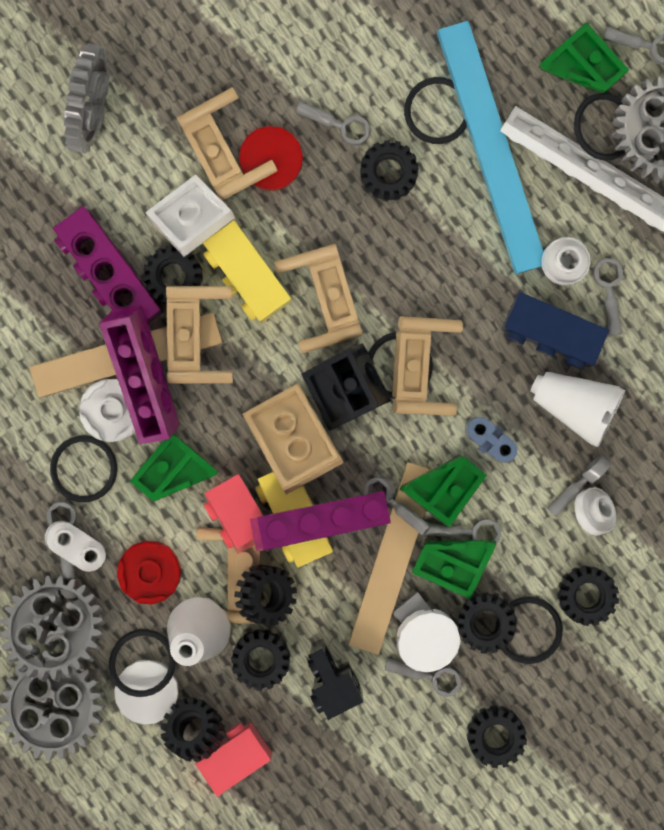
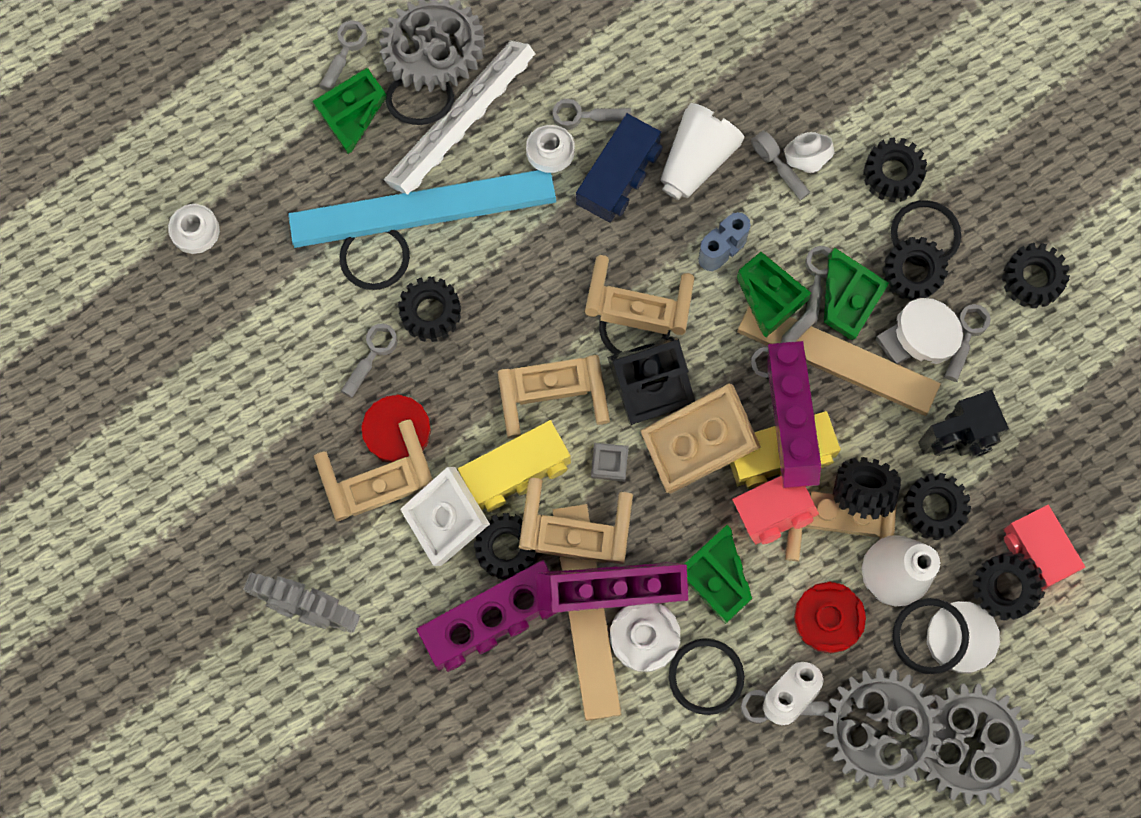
camera: 75 degrees left, 15 degrees down
(265, 358) = (609, 462): none -> light grey tile

